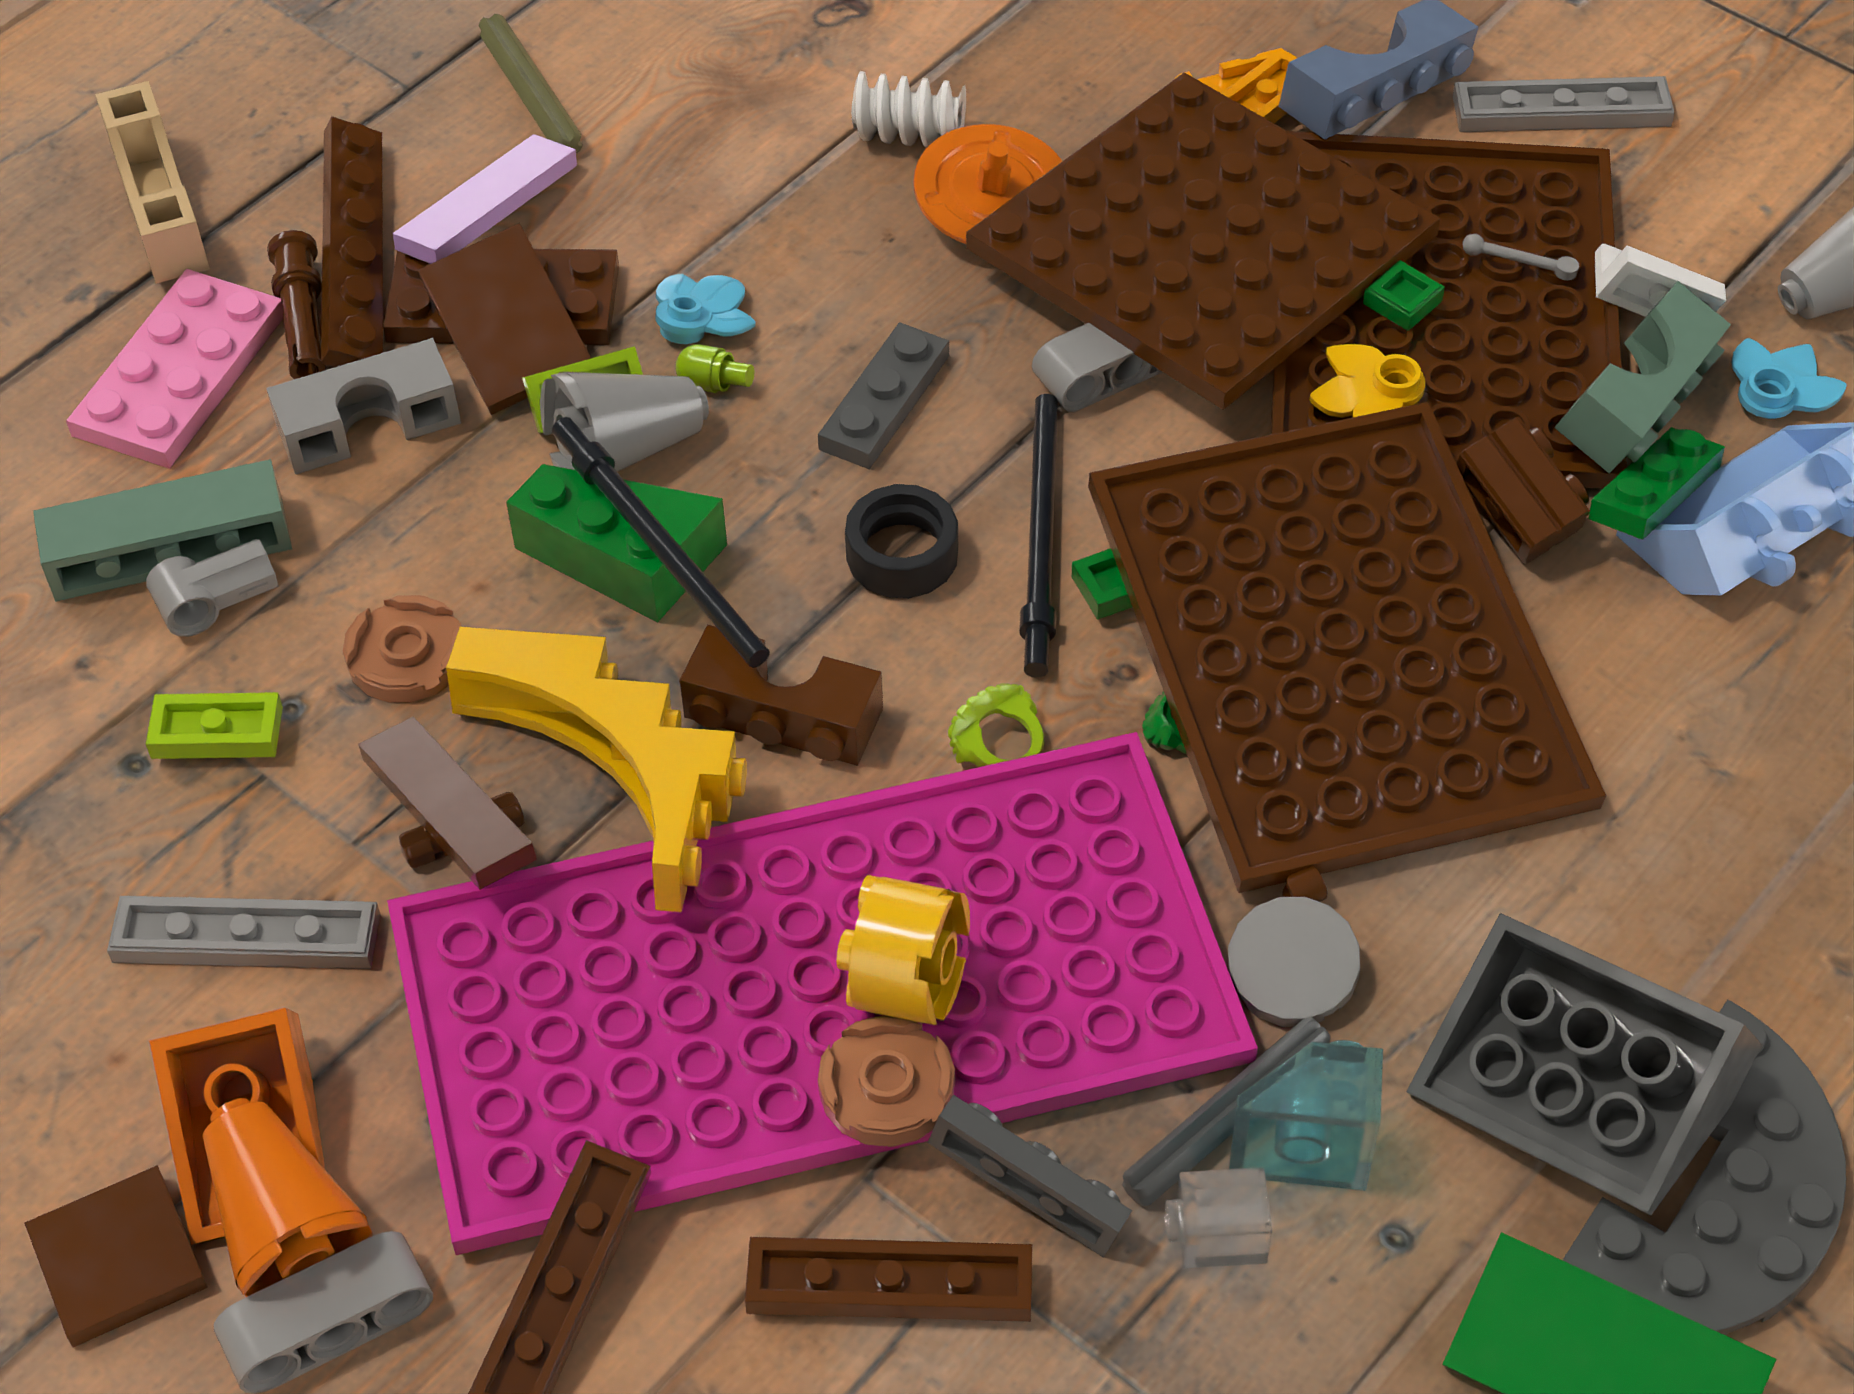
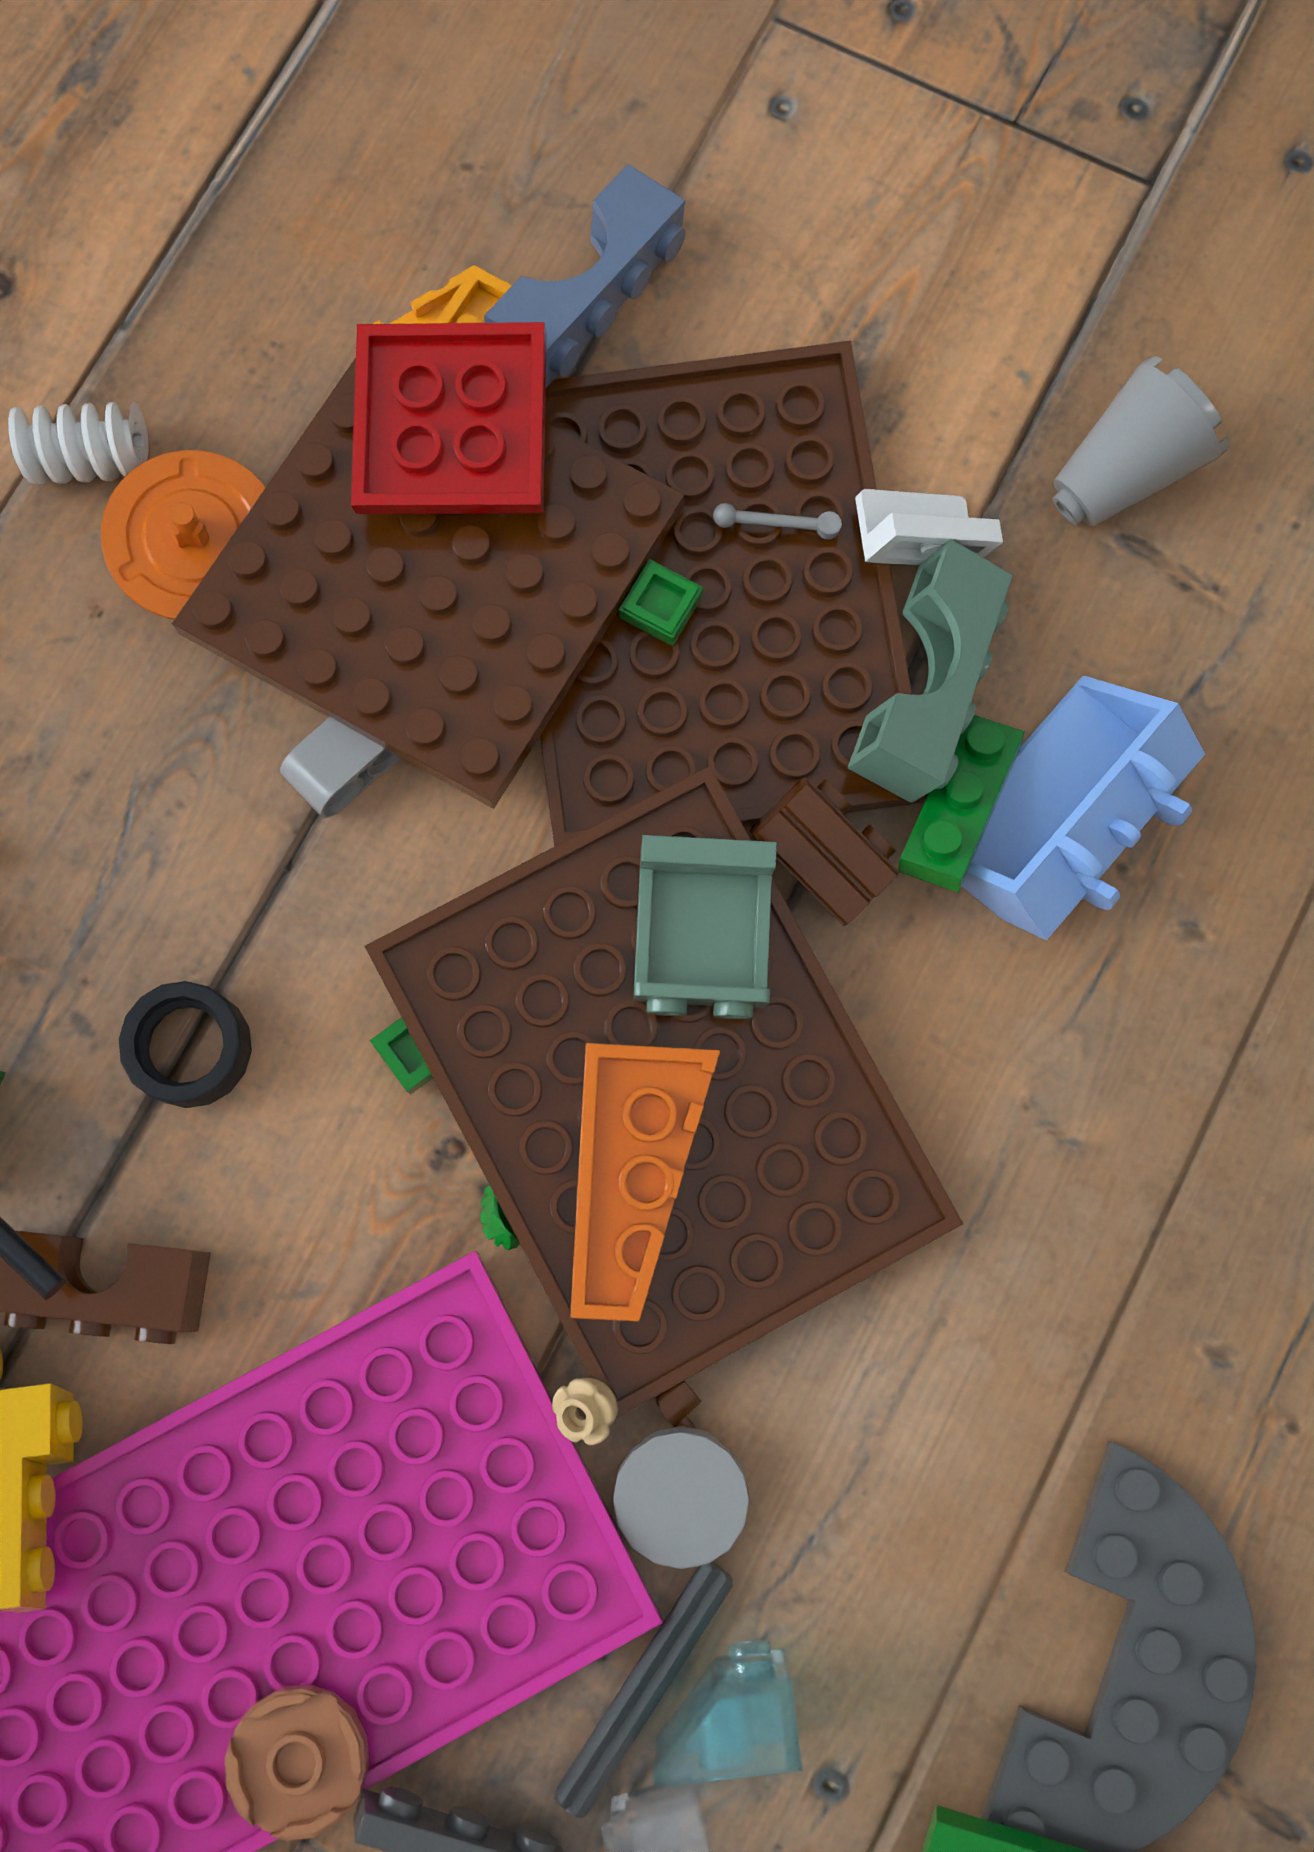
camera: 10 degrees left, 25 degrees up
(883, 395) = (131, 840): dark grey plate -> none
(904, 949) = (280, 1638): yellow brick -> none
(1004, 699) = (299, 1284): lime piece -> none
(1038, 615) = (348, 1112): black bar -> none
(1230, 868) = (597, 1403): none -> tan plate
(1246, 121) = (449, 418): none -> red plate
(1301, 669) = (633, 1153): none -> orange wing
(1368, 382) = (633, 746): yellow plate -> none
(1403, 501) = (703, 925): none -> sand green panel
(1563, 104) = (790, 273): light grey tile -> none
(1584, 1064) = (990, 1581): dark grey slope -> none
(1782, 381) = (1073, 612): medium azure plate -> none

